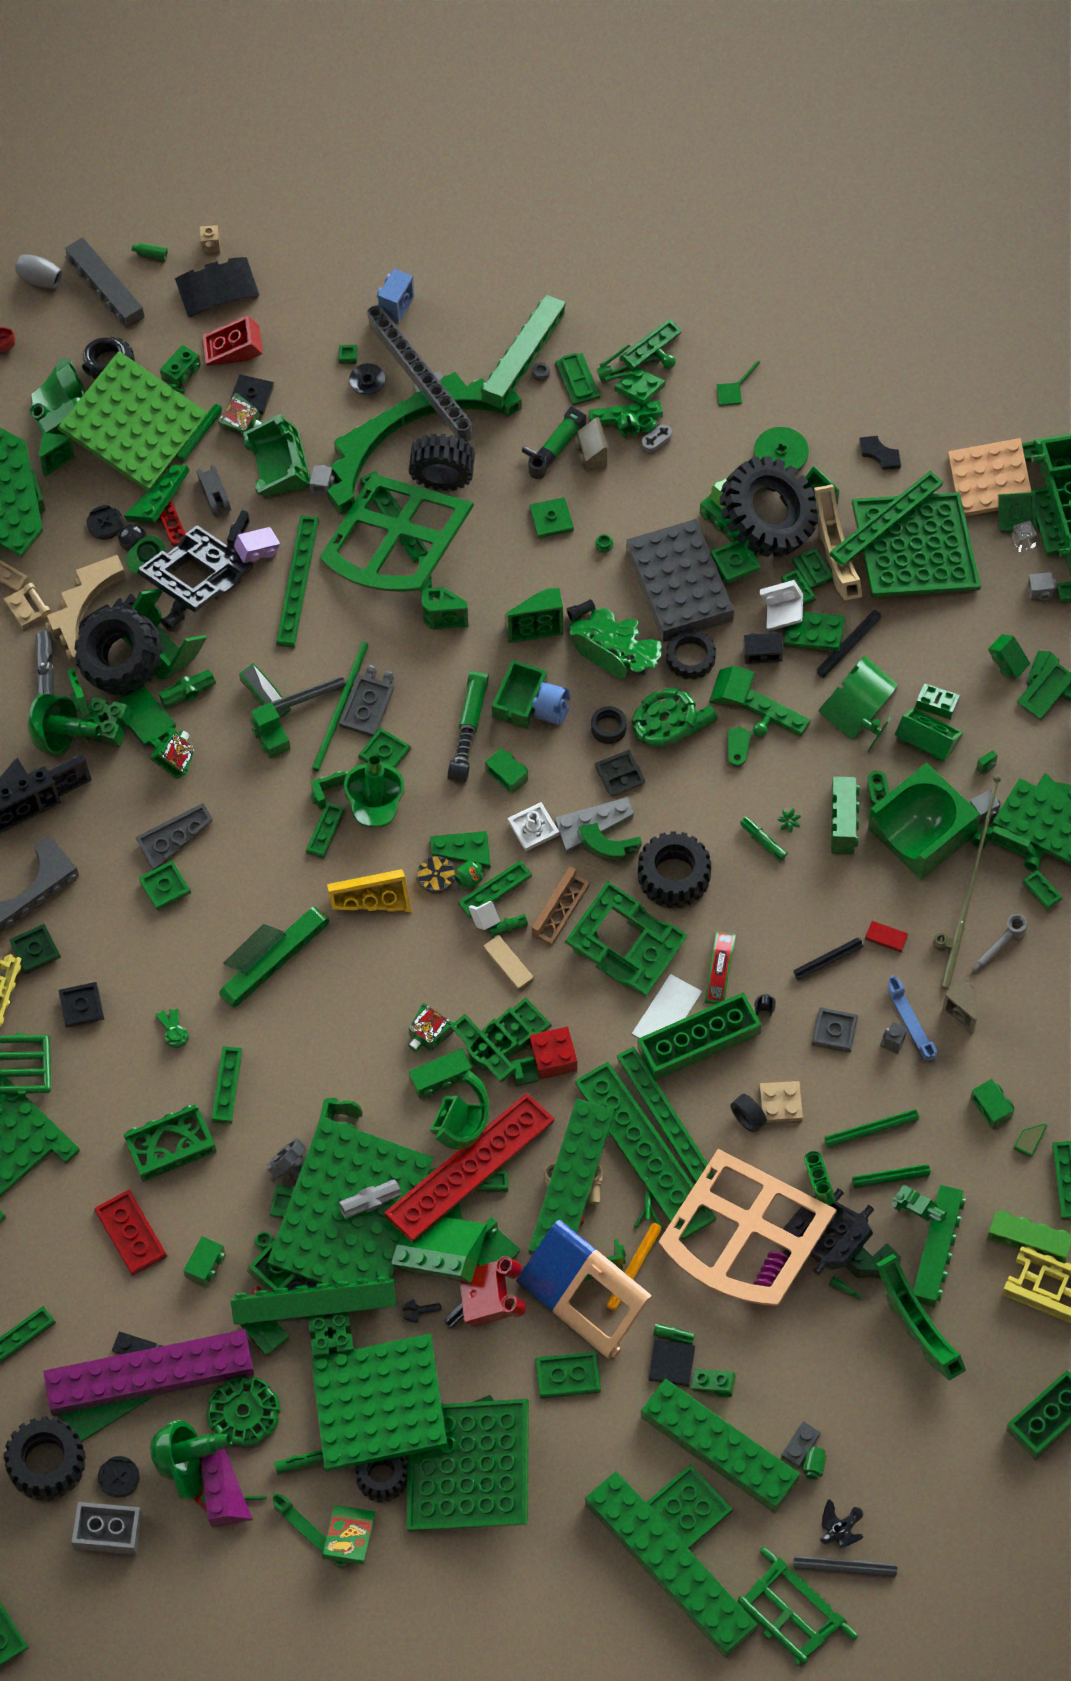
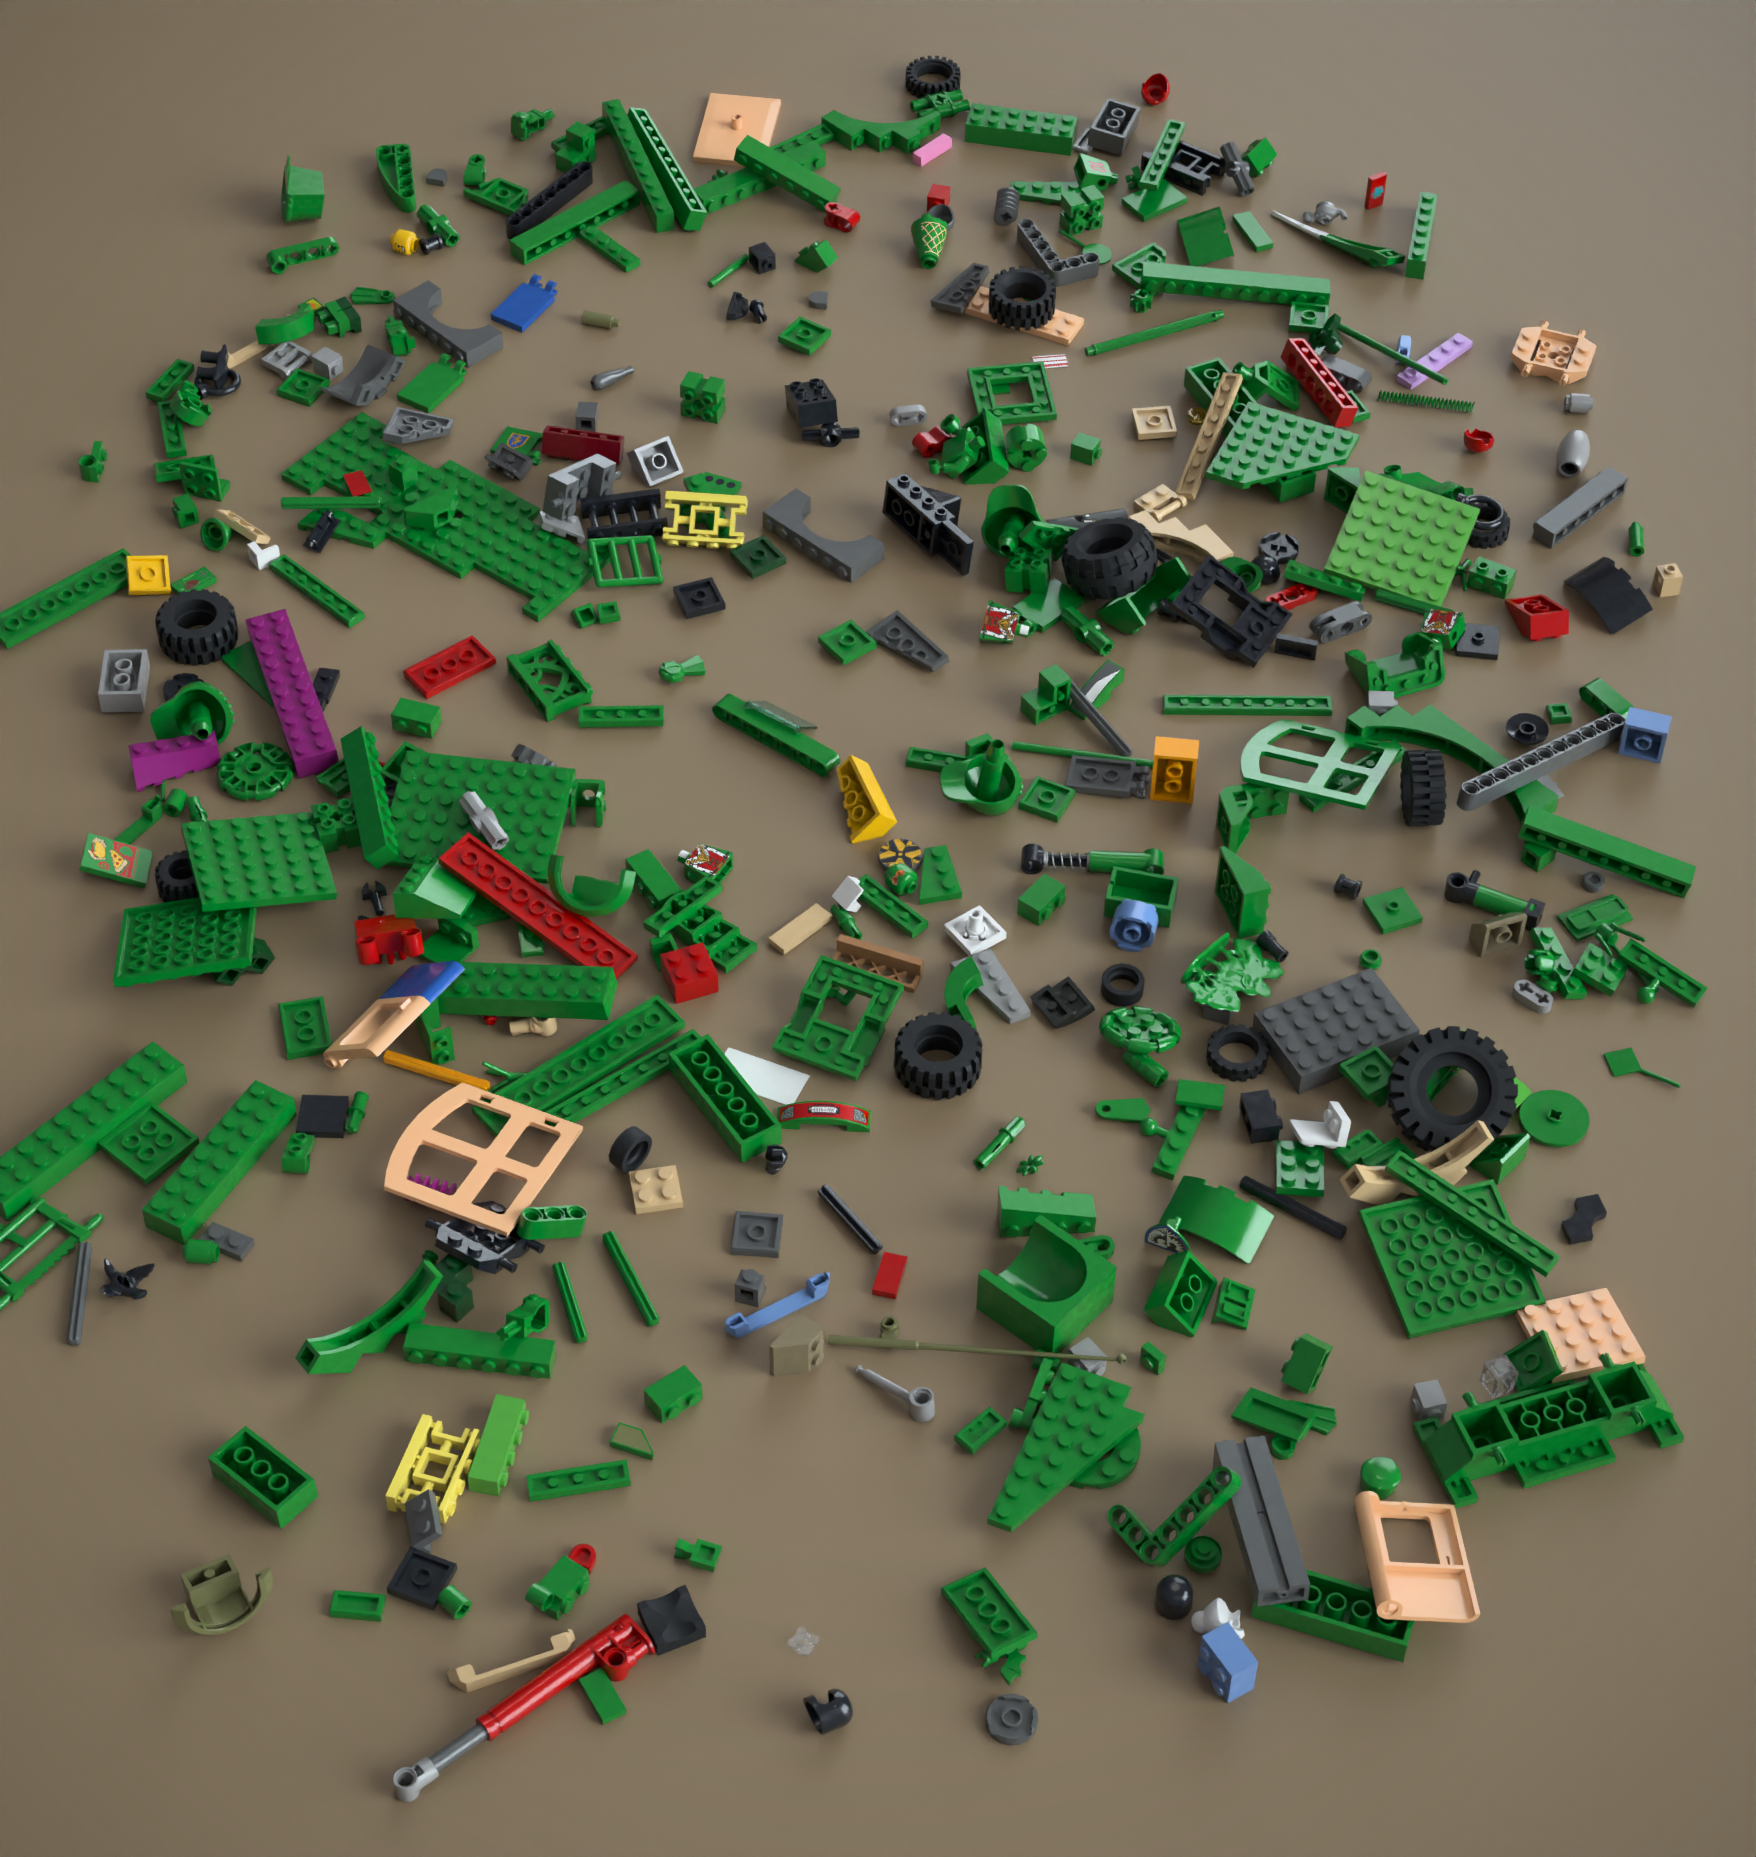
camera: 80 degrees right, 15 degrees down
(82, 1108) = (584, 615): none -> green slope
(86, 1085) = (608, 612): none -> green plate
(256, 544) = (1278, 659): lavender piece -> none
(275, 1483) = (175, 802): none -> green gear
(344, 315) = (1604, 698): none -> green beam
(387, 641) = (1174, 770): none -> light orange brick
(524, 543) = (1348, 886): none -> black bush

